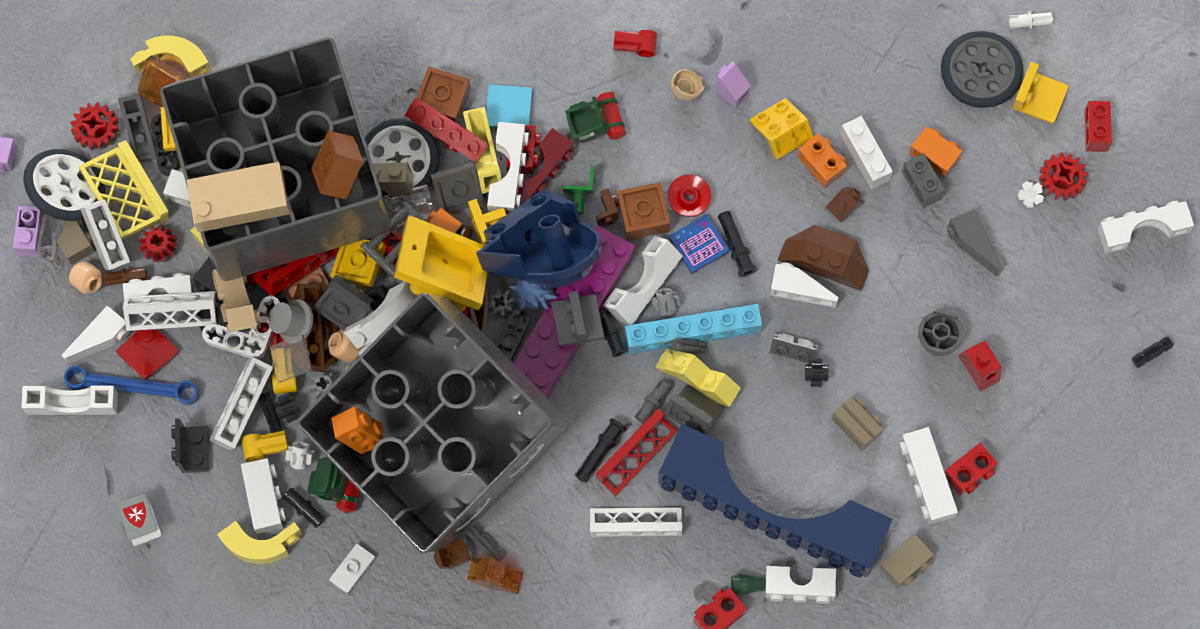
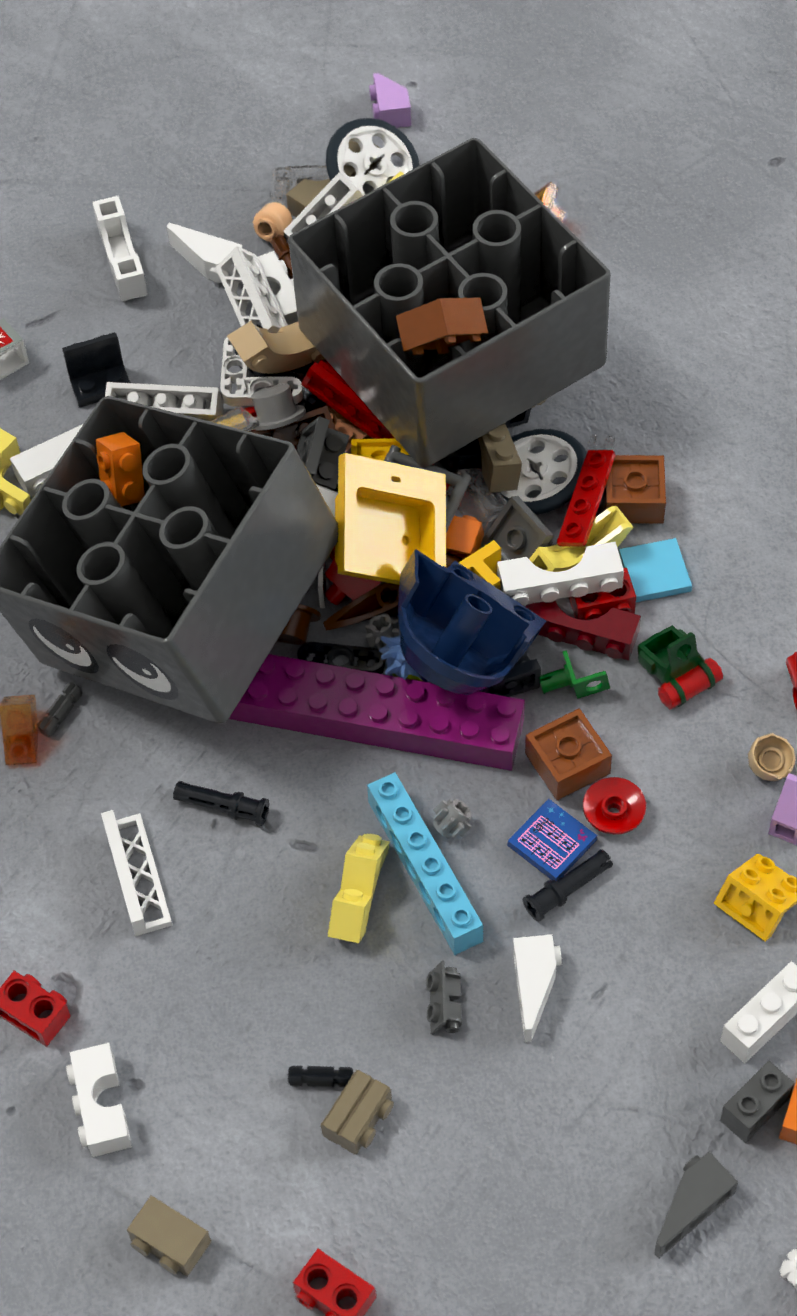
camera: 75 degrees right, 15 degrees down
(27, 231) = (305, 150): lavender slope -> none
(132, 385) = (159, 304): blue piece -> none
(147, 352) = (203, 306): red plate -> none
(173, 49) = (579, 211): light yellow arch -> none
(238, 197) = (359, 237): tan brick -> none
(454, 555) = (33, 675): reddish brown bracket -> none
(577, 320) = (380, 709): dark grey bracket -> none
(610, 203) = (544, 715): reddish brown bracket -> none
(611, 334) = (385, 767): black pin -> none
(630, 446) = (237, 834): red fence -> none
(653, 401) = (308, 845): dark grey pin -> none
(659, 260) = (432, 772): white arch -> none
(688, 345) = (396, 860): dark grey axle -> none
(693, 409) = (306, 892): dark grey bracket -> none
(745, 584) = (81, 1027): clear green cone -> none
(816, 372) = (413, 1035): black gear -> none
(822, 160) = (733, 958): orange brick -> none
(823, 440) = (319, 1076): none -> black axle
(827, 256) = (595, 1008): reddish brown wedge -> none
(843, 537) = (178, 1135): dark blue arch -> none
(845, 203) = (683, 1007): reddish brown bracket -> none
(928, 476) = (295, 1237): white brick -> none
(940, 333) = (525, 1183): dark grey cylinder -> none
(980, 364) = (501, 1258): red torso -> none

